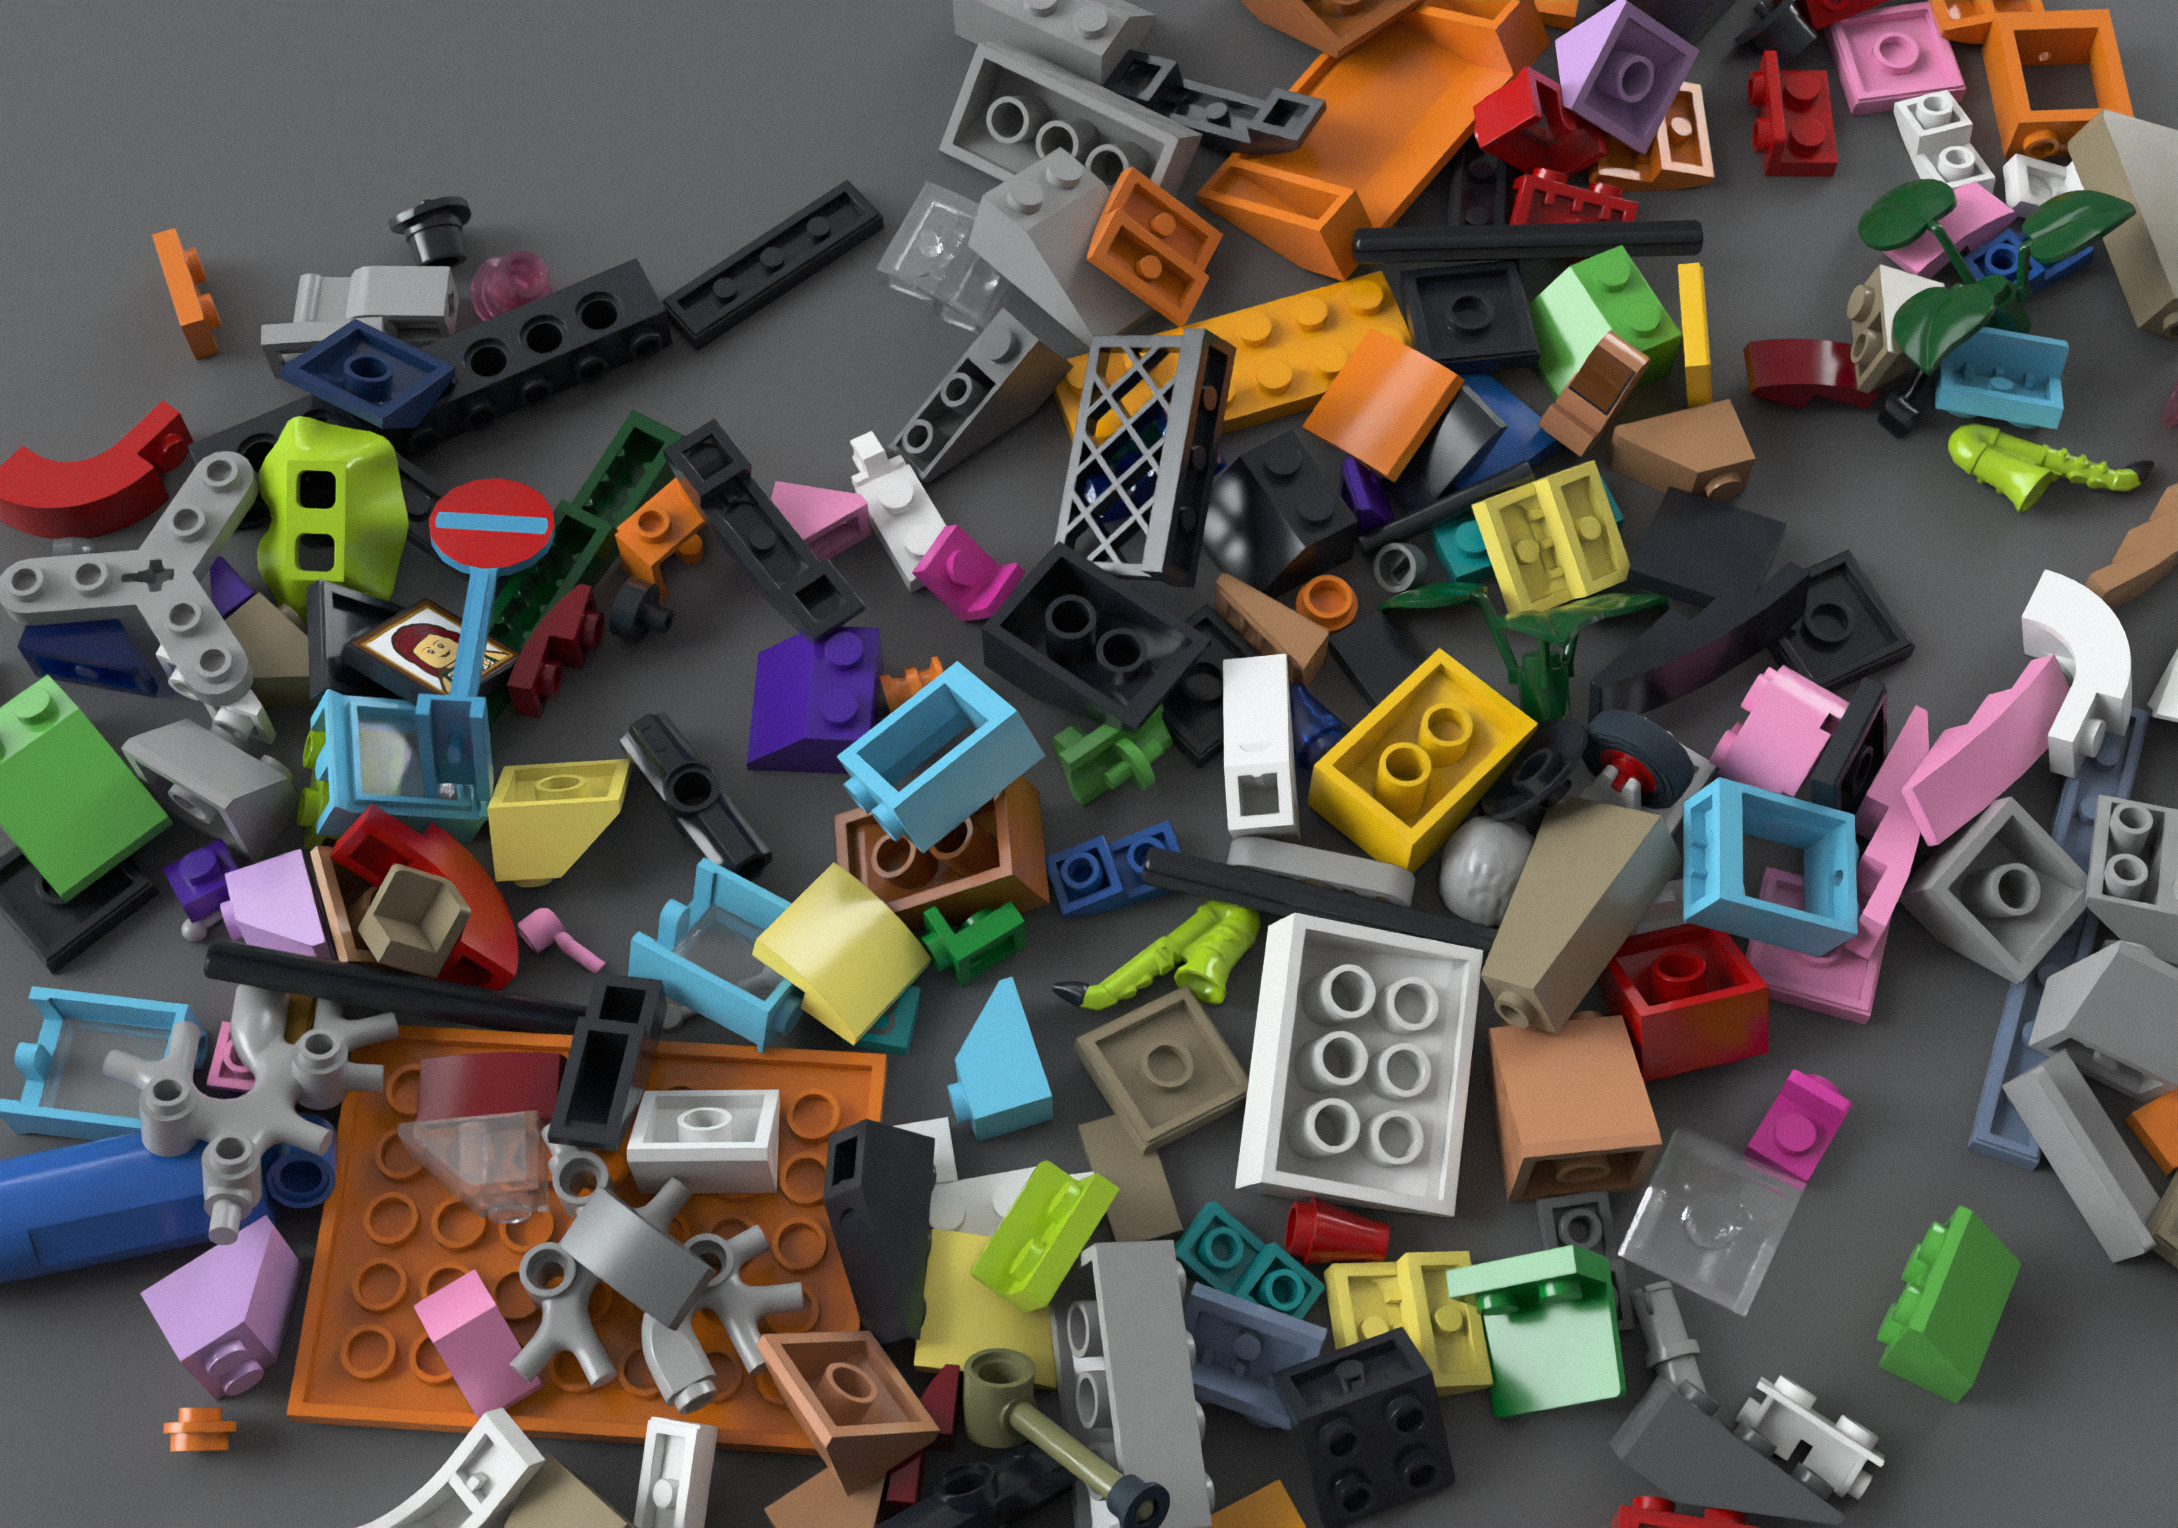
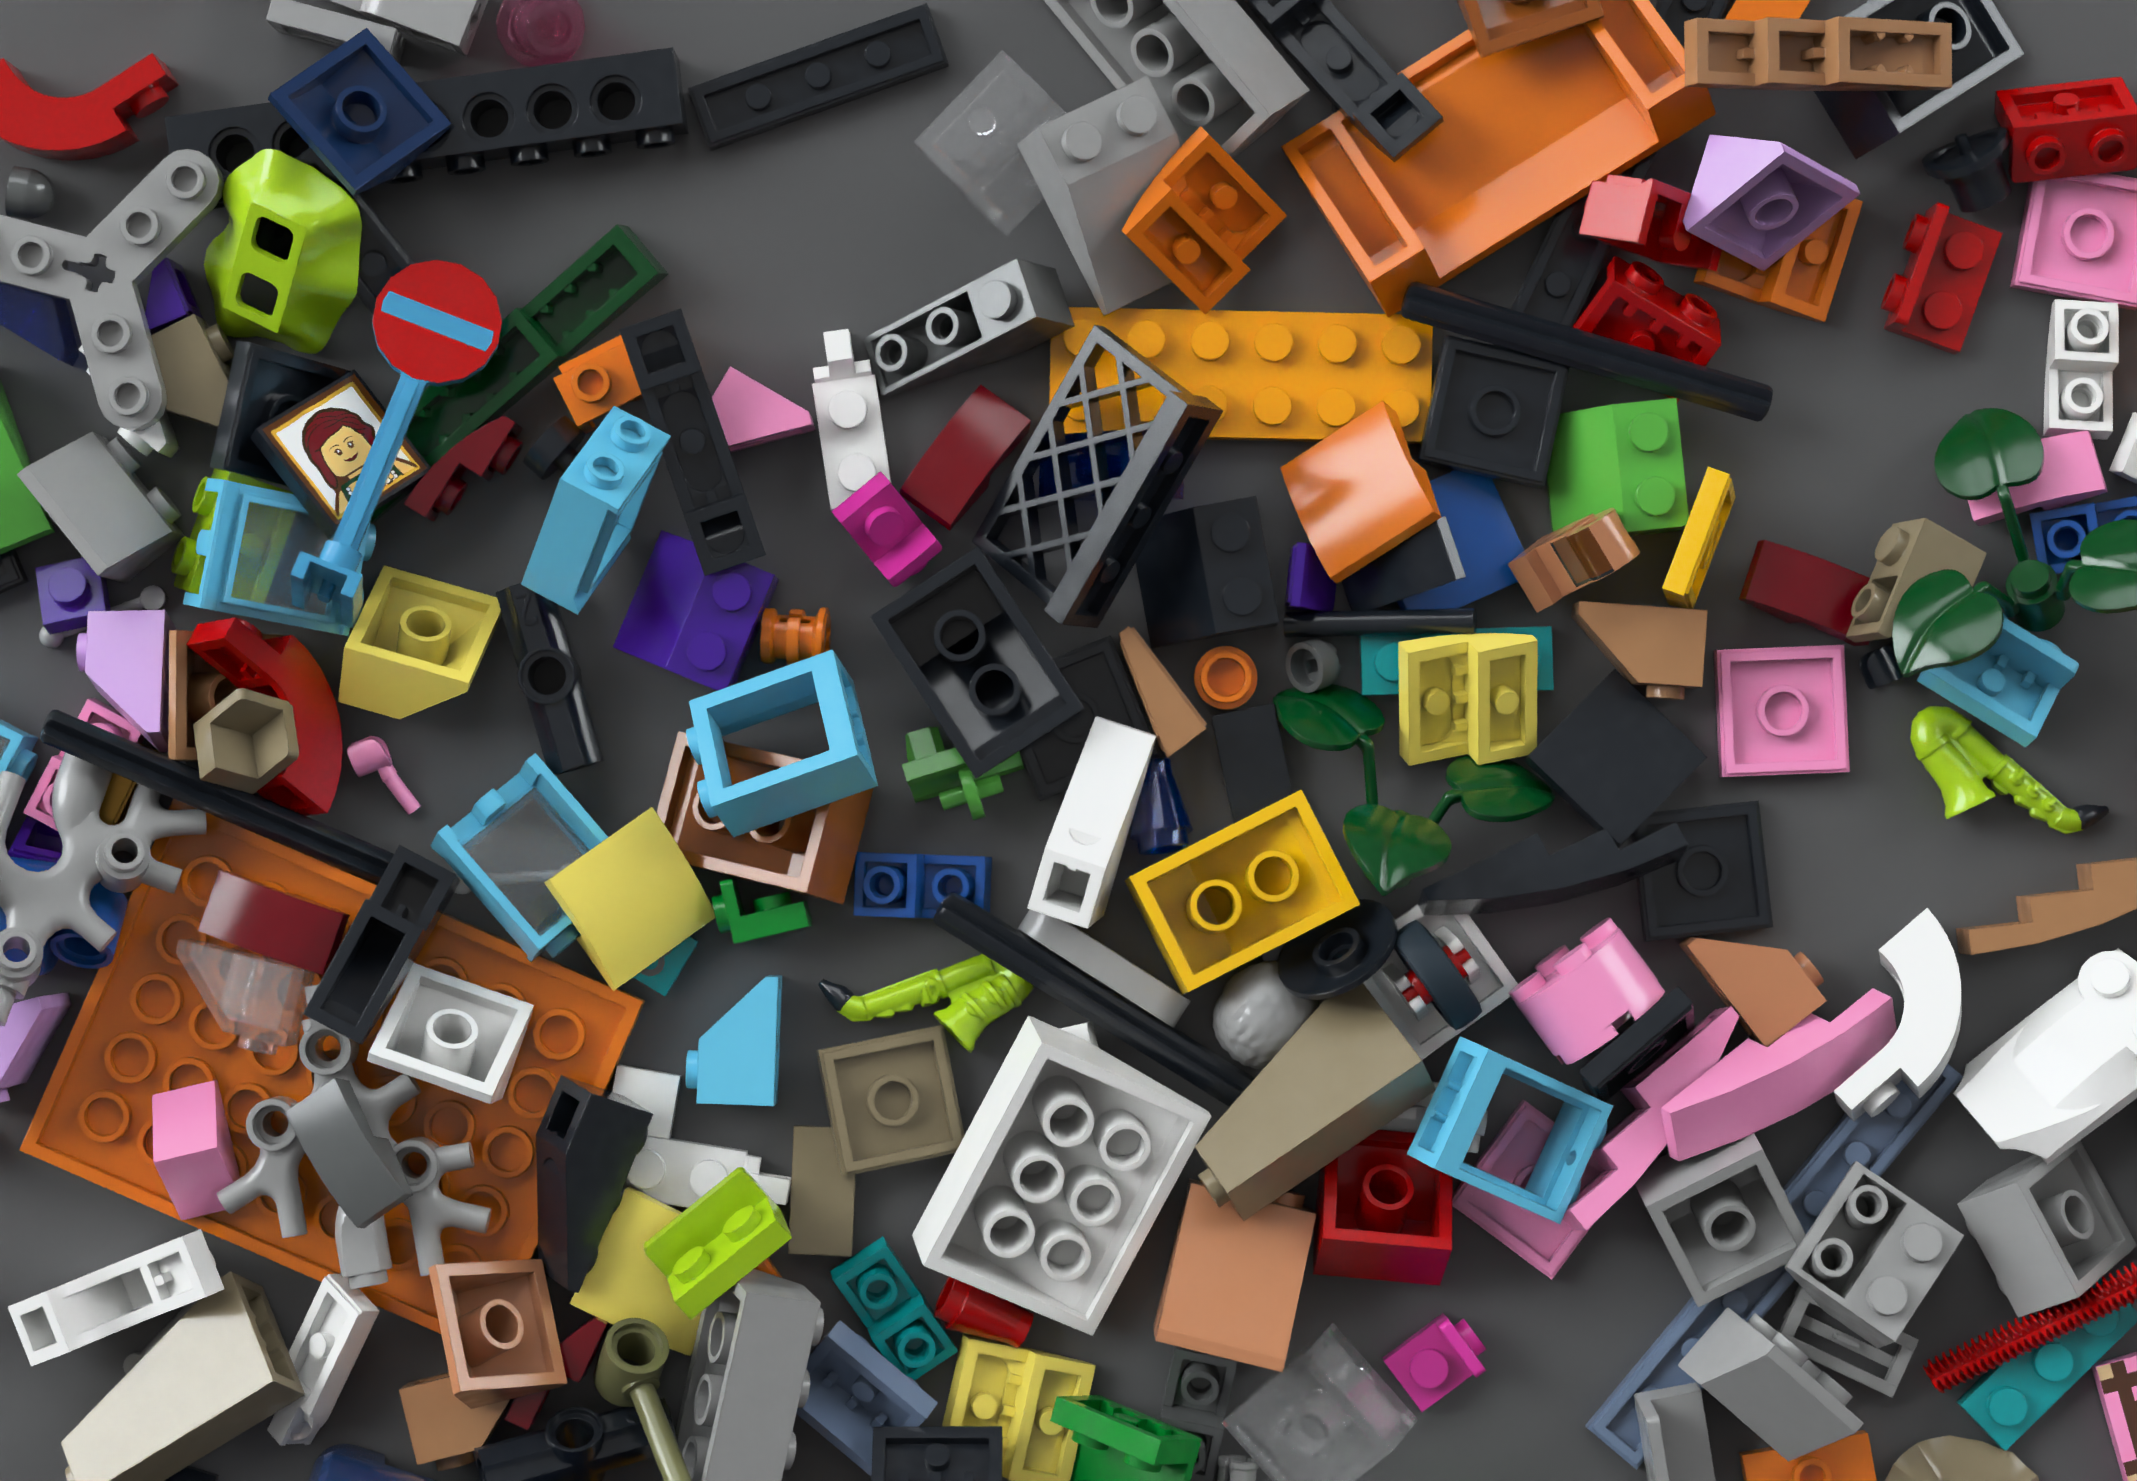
camera: 20 degrees right, 25 degrees up
(690, 616) = (594, 509): none -> medium azure window
(1015, 500) = (964, 457): none -> dark red slope
(1831, 478) = (1781, 711): none -> bright pink tile
(1932, 676) = (1760, 983): none -> nougat slope

